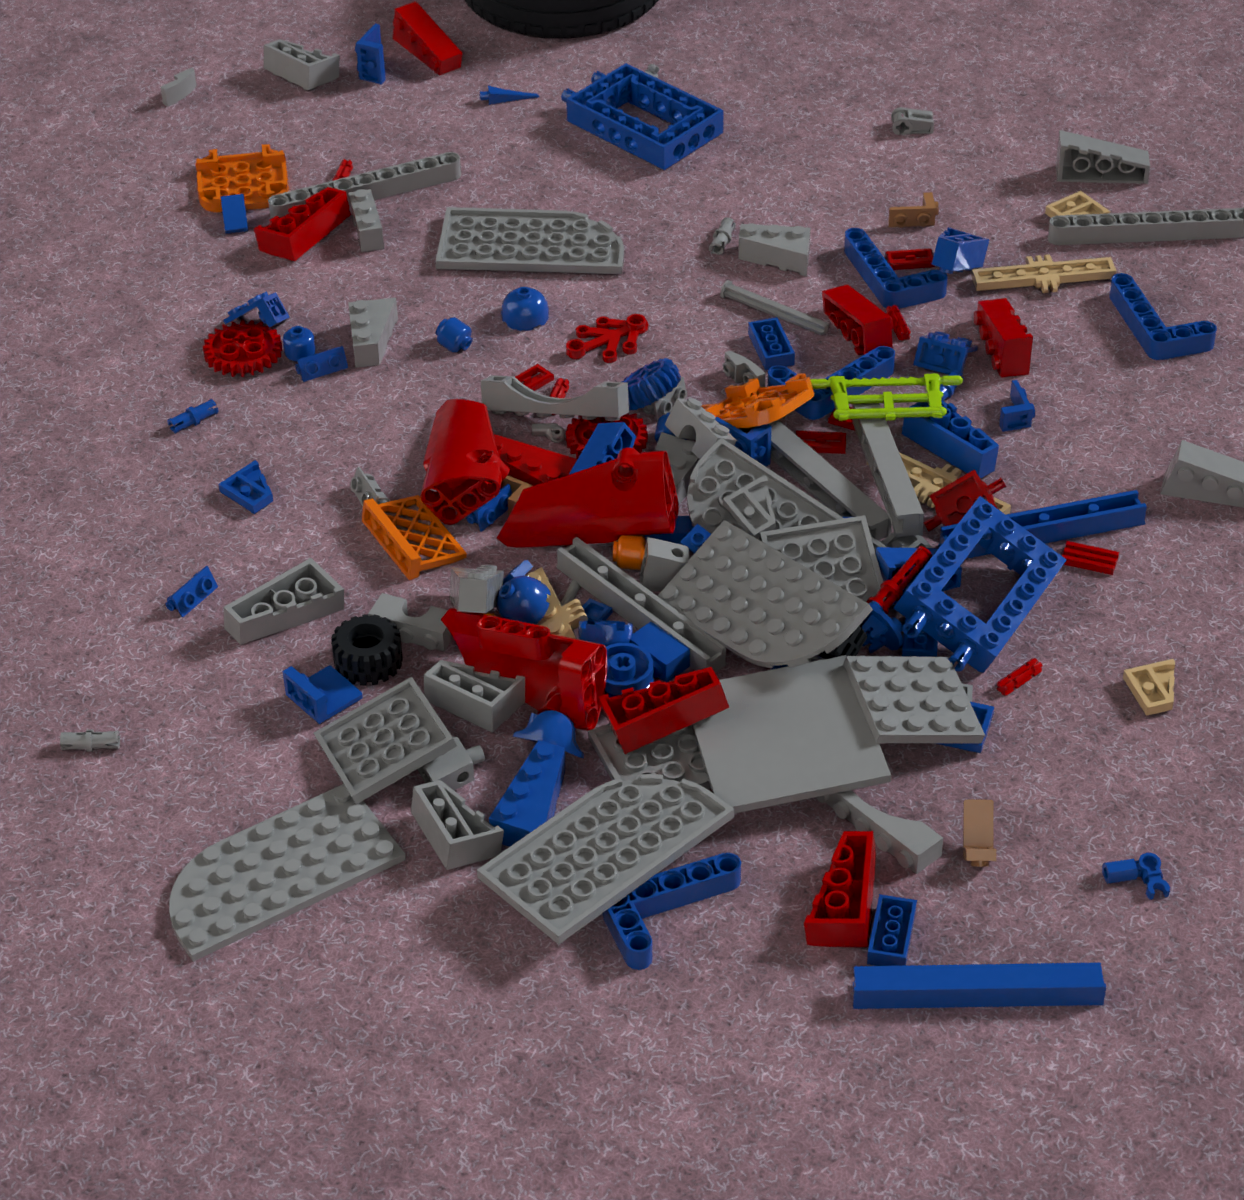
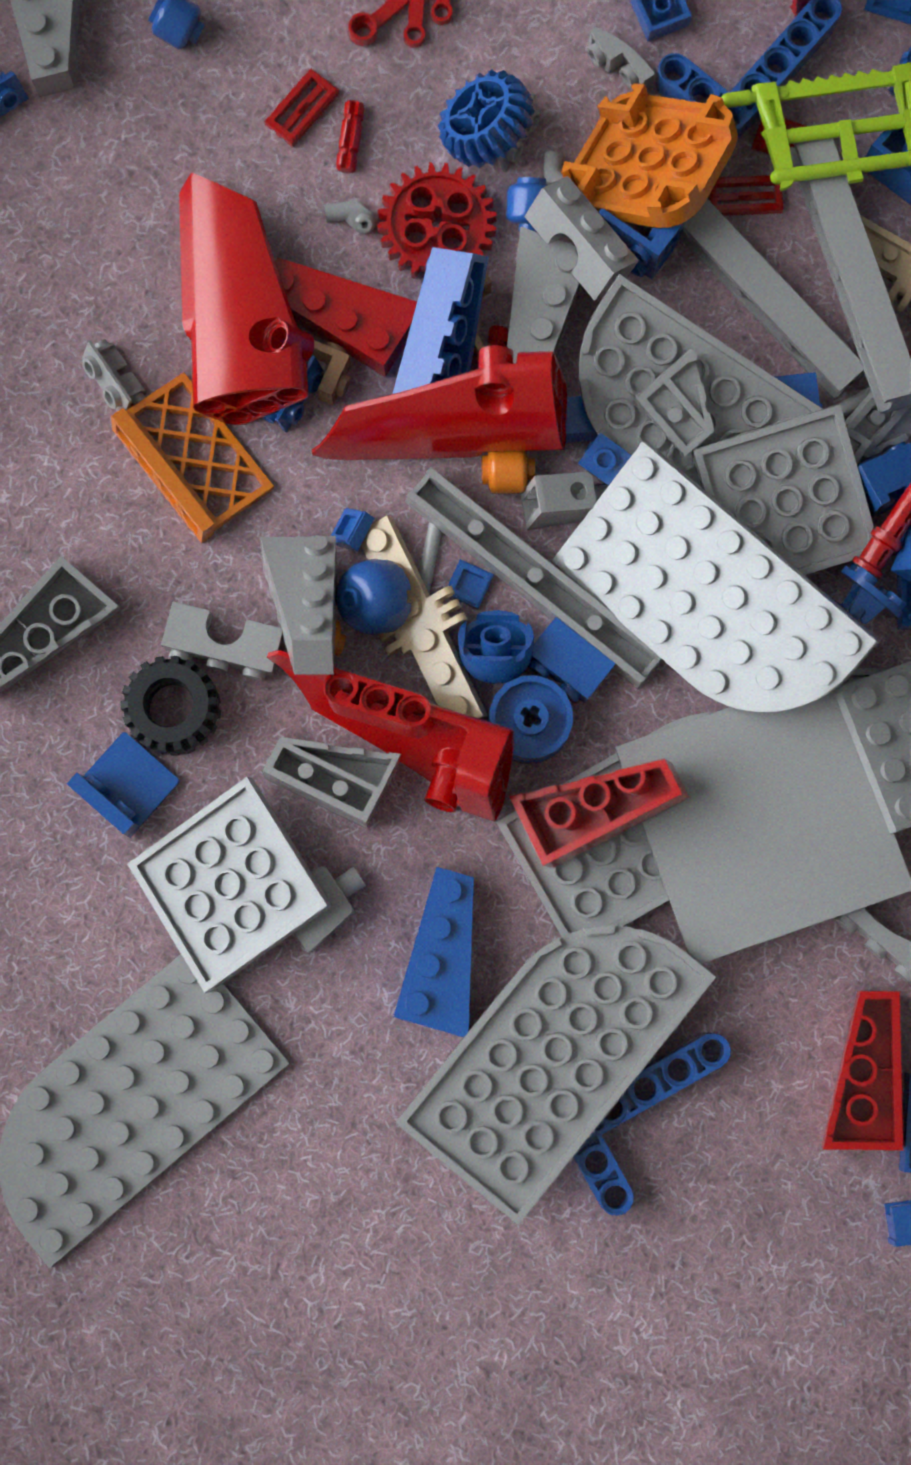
camera: 10 degrees left, 40 degrees up
(452, 827) = (344, 1020): light grey wedge -> none
(509, 394) = (422, 181): light grey arch -> none
(552, 728) = (449, 841): blue hat -> none

